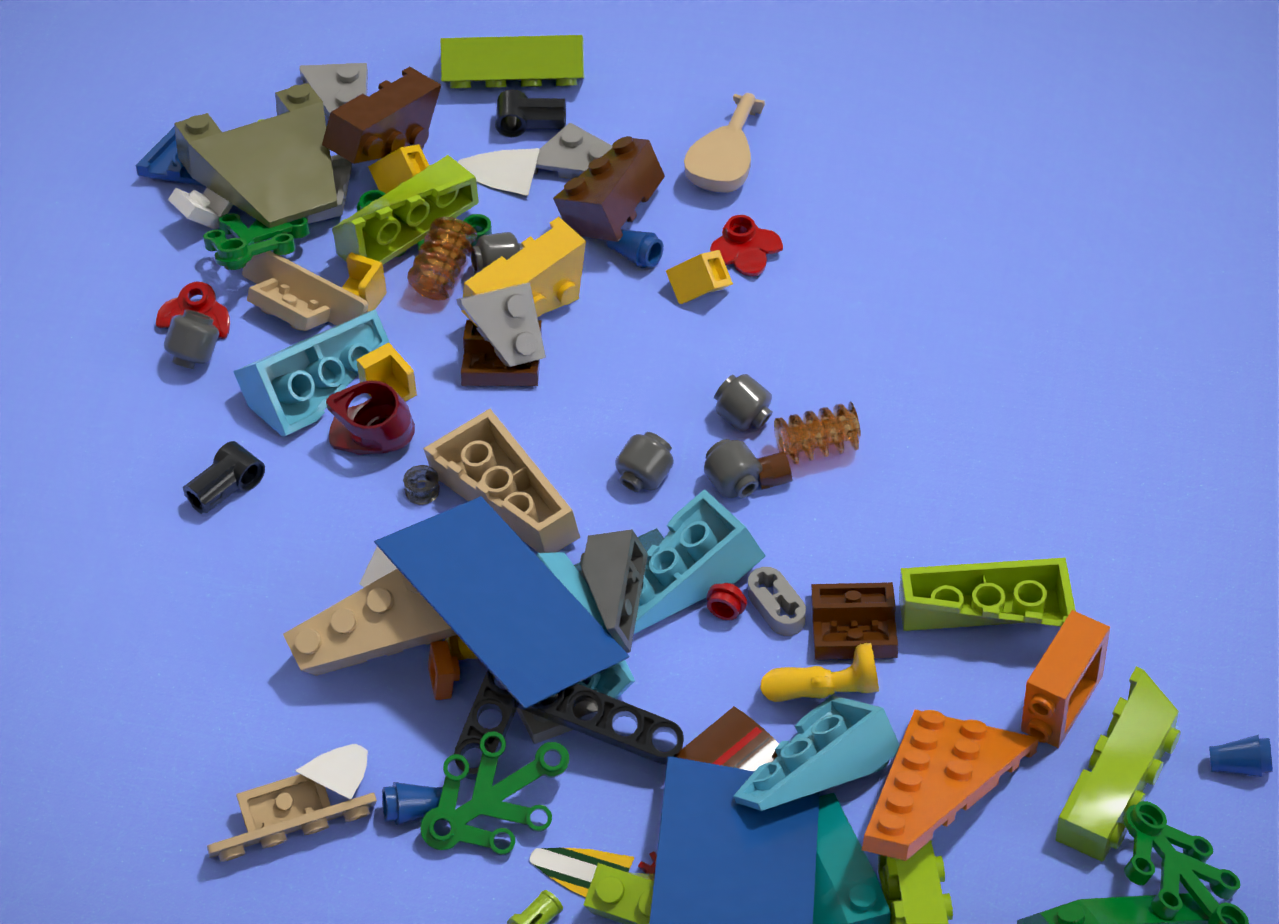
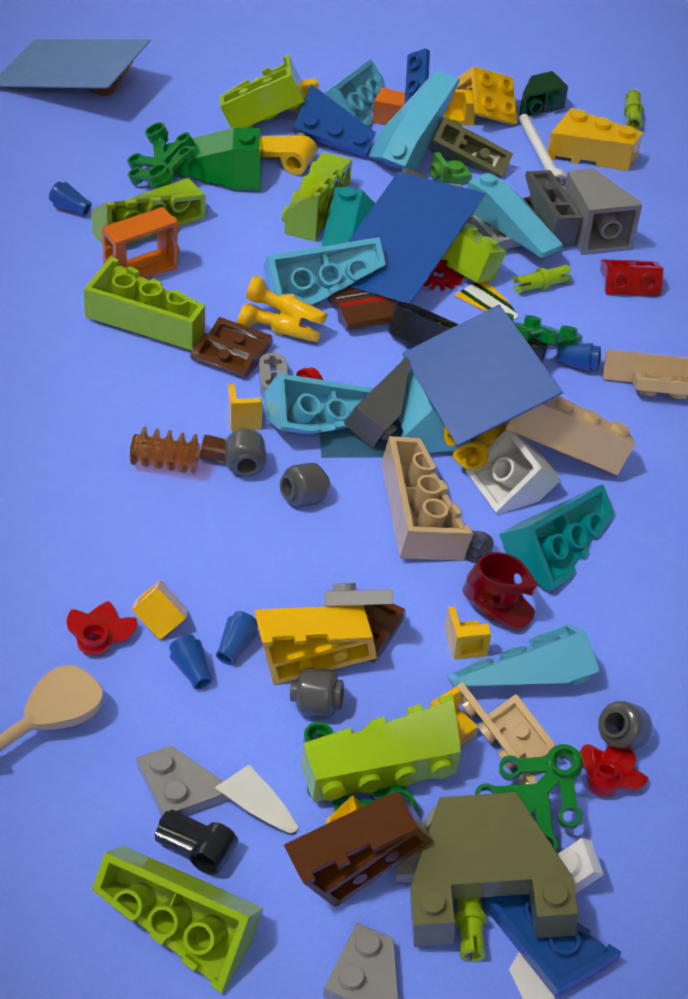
camera: 160 degrees left, 5 degrees down
(231, 470) = (626, 609): black piece -> none
(338, 769) = (622, 379): white sticker -> none
(342, 508) = (559, 536): none -> teal wedge
(440, 257) = (370, 700): clear orange piece -> none
(609, 287) = (237, 636): none -> blue cone
(610, 189) = (184, 699): reddish brown wedge -> none
(743, 402) = (201, 495): dark grey head -> none
(775, 526) = (244, 412): none -> yellow panel
(937, 772) = (242, 239): orange wing -> none

